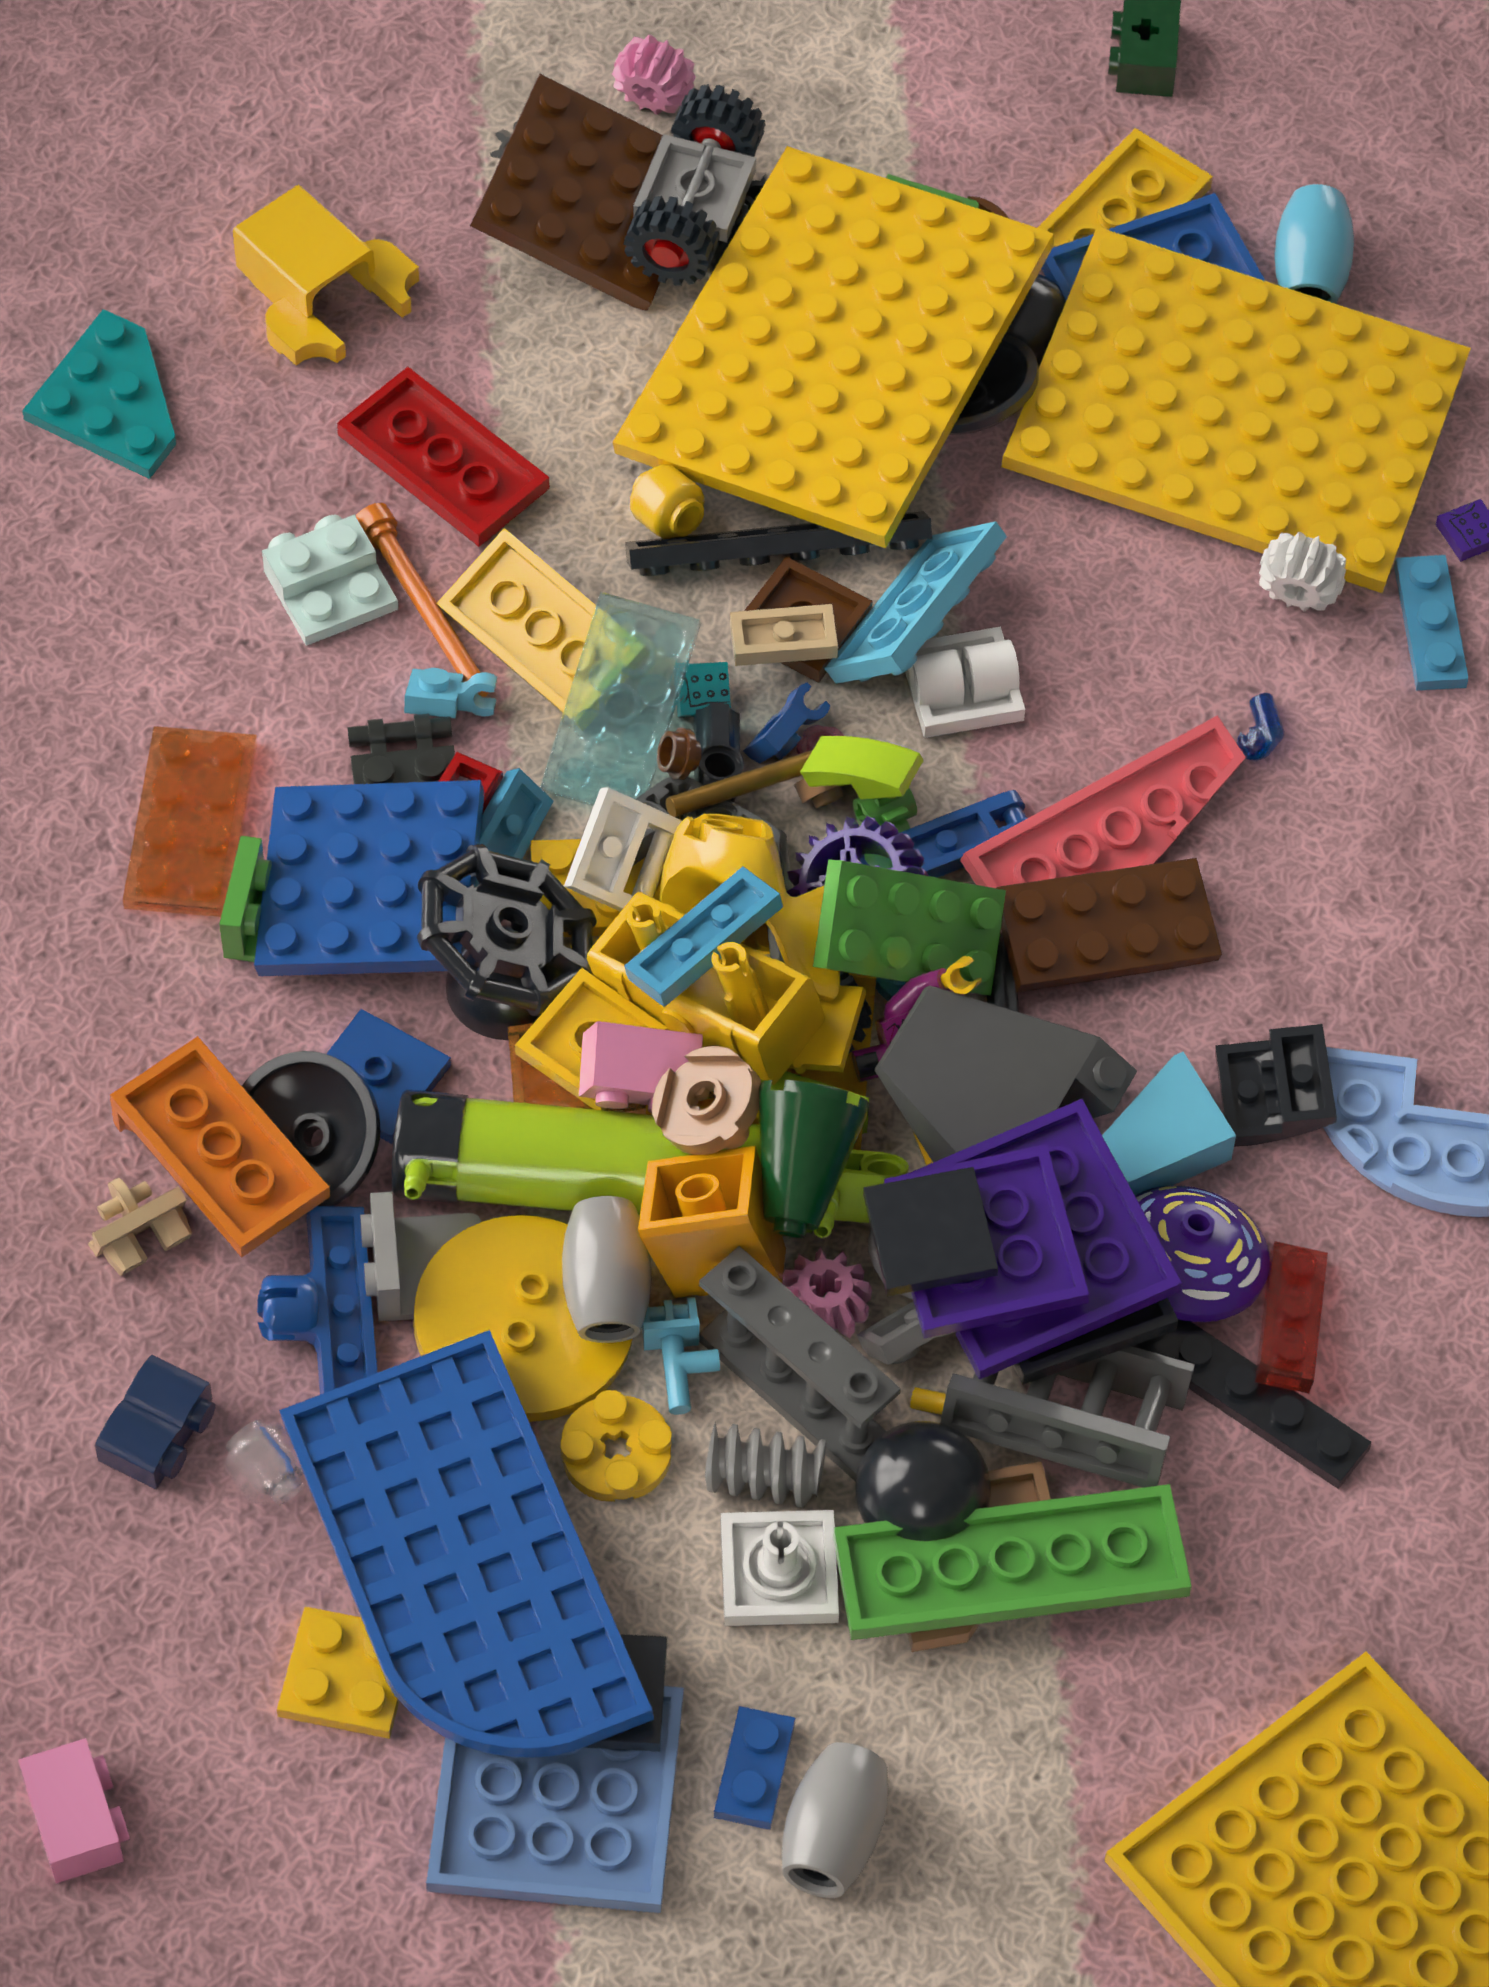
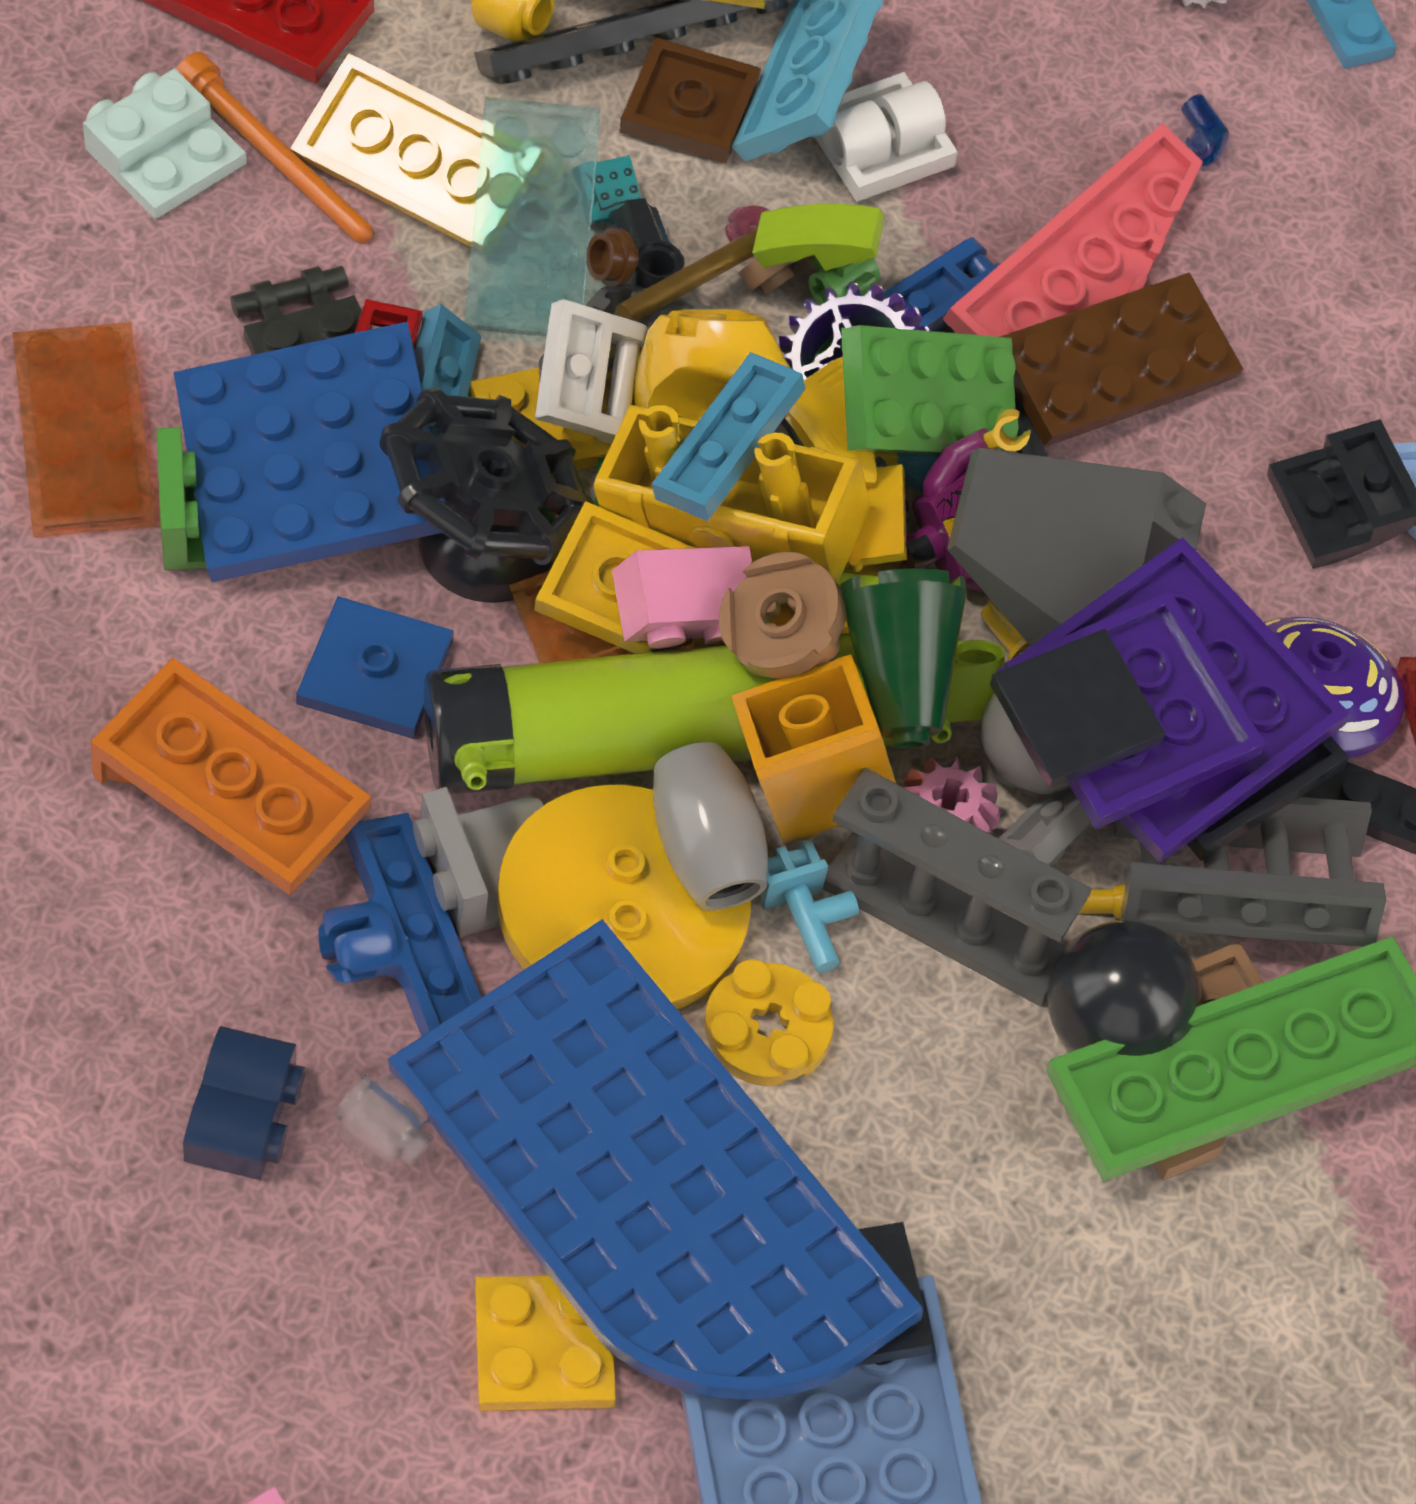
camera: 20 degrees left, 0 degrees up
(118, 1238) = (181, 868): tan hips -> none
(321, 1092) = (342, 696): black dish -> none
(444, 693) = (328, 244): medium azure plate -> none
(754, 1768) = (1034, 1348): blue plate -> none
(764, 1466) = (945, 1006): light grey piece -> none
(779, 733) = (706, 218): blue plate -> none
(779, 1568) = (992, 1118): white plate -> none
(783, 635) = (683, 116): tan plate -> none
(835, 1820) = (1149, 1388): light grey piece -> none
(1170, 1130) = (1264, 551): medium azure slope -> none

